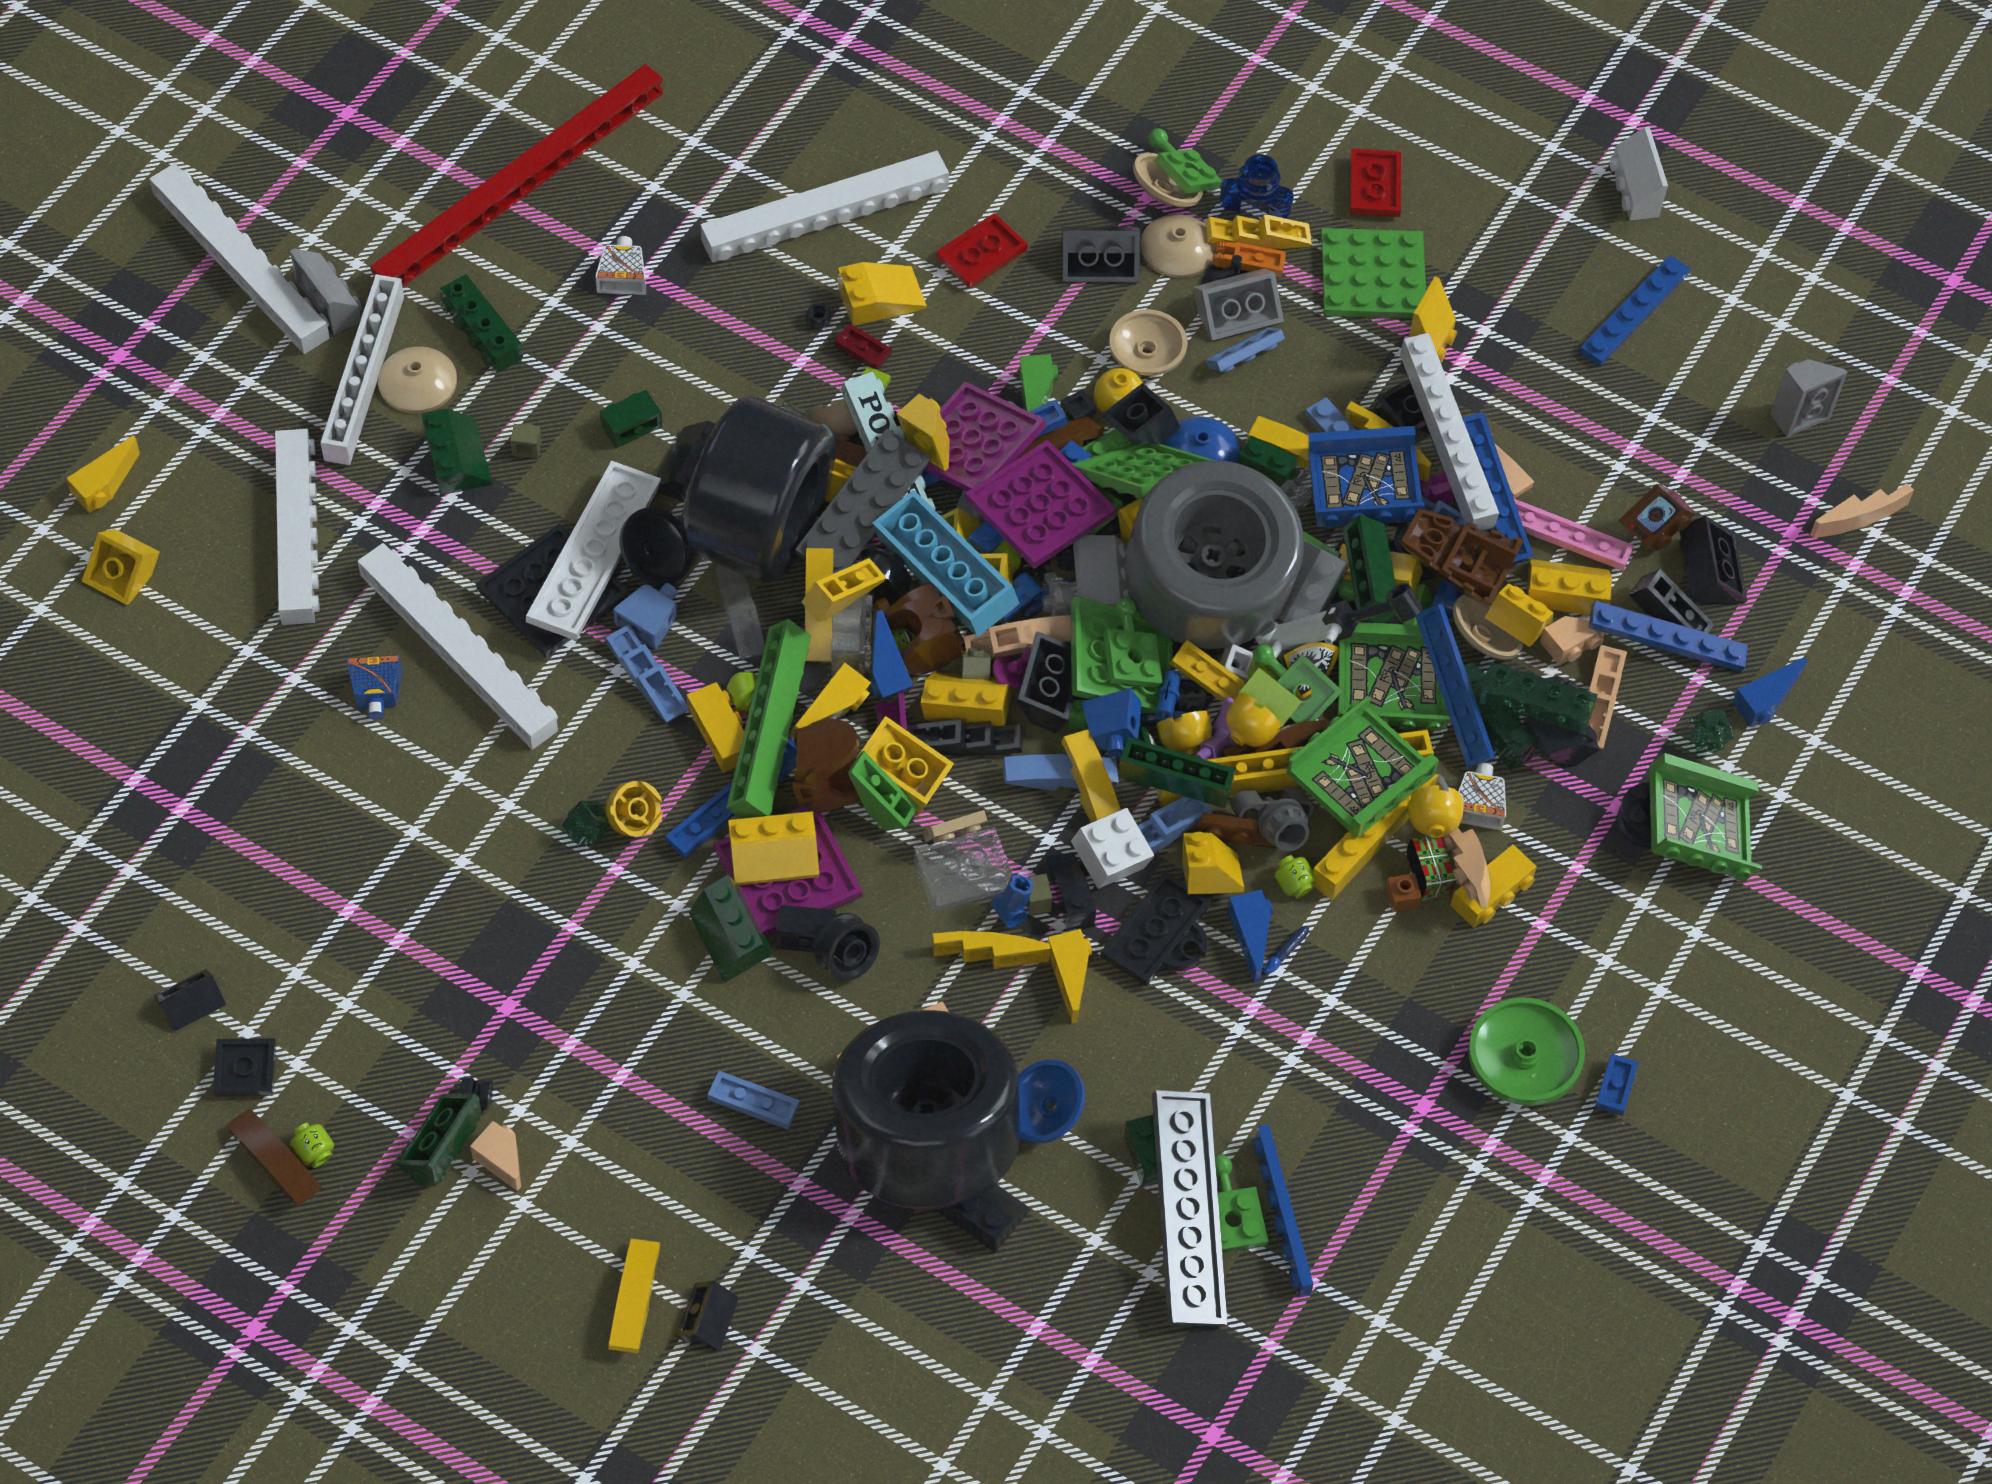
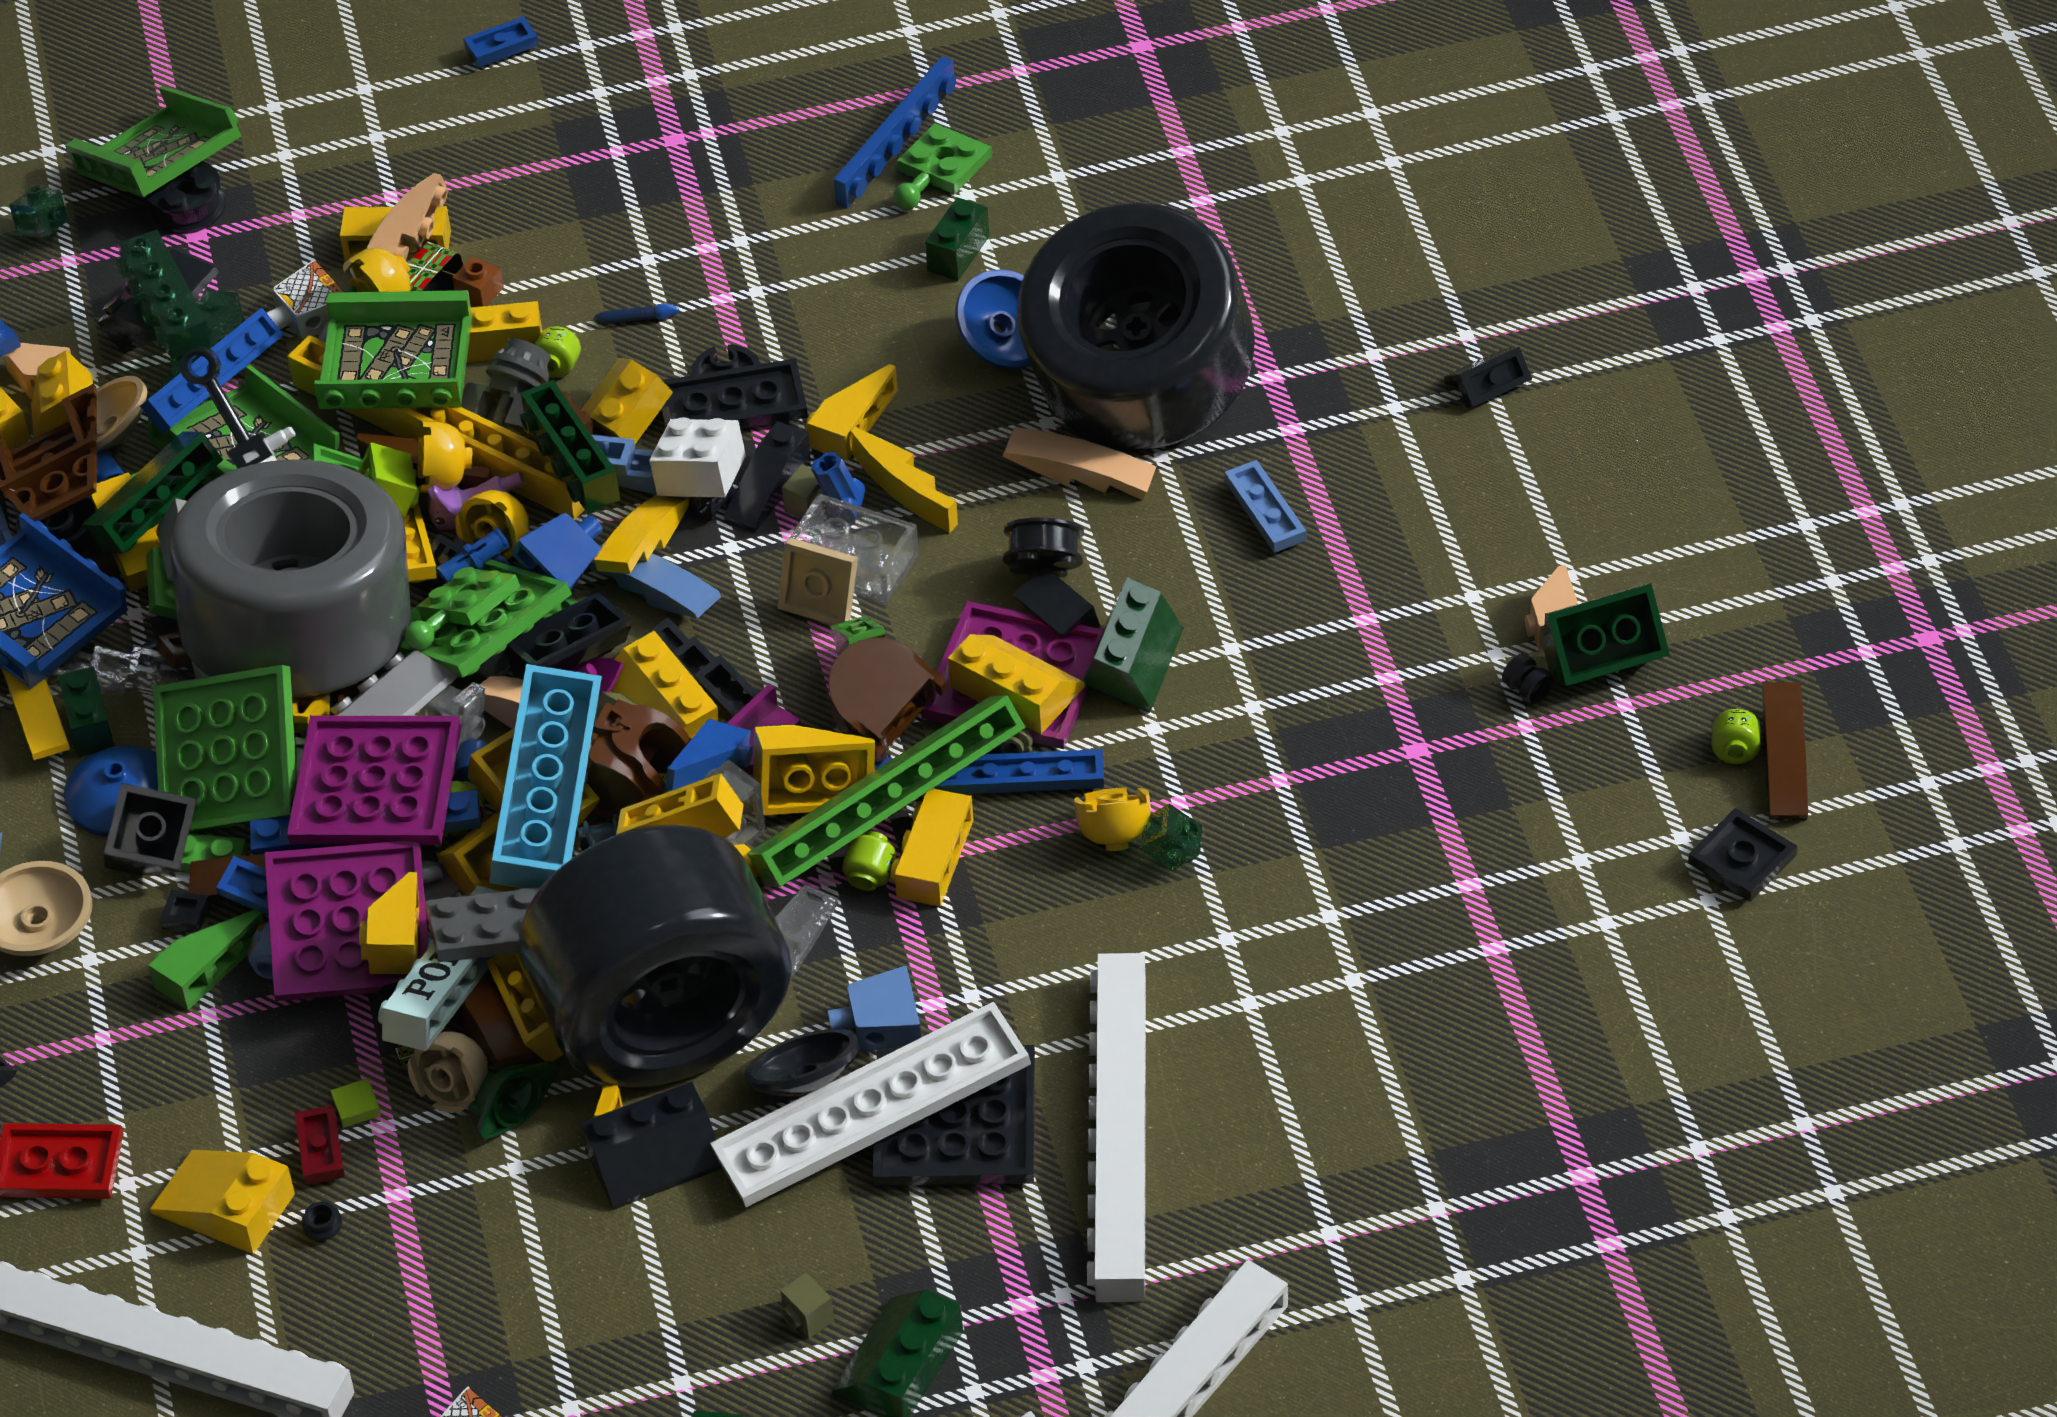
camera: 130 degrees left, 10 degrees down
(190, 999) = (1743, 963): black panel -> none
(375, 683) = (1249, 1144): blue torso -> none
(630, 418) = (663, 1245): dark green brick -> none
(634, 1296) = (1540, 421): yellow slope -> none
(647, 674) = (948, 957): medium blue slope -> none
(907, 761) = (798, 649): yellow slope -> none
(1114, 386) = (126, 896): yellow cylinder -> none
(1189, 1209) = (979, 161): plate -> none
(1250, 921) = (652, 333): blue slope -> none
(1526, 1051) = (545, 96): bright green dish -> none
(1605, 684) = (68, 316): light nougat slope -> none

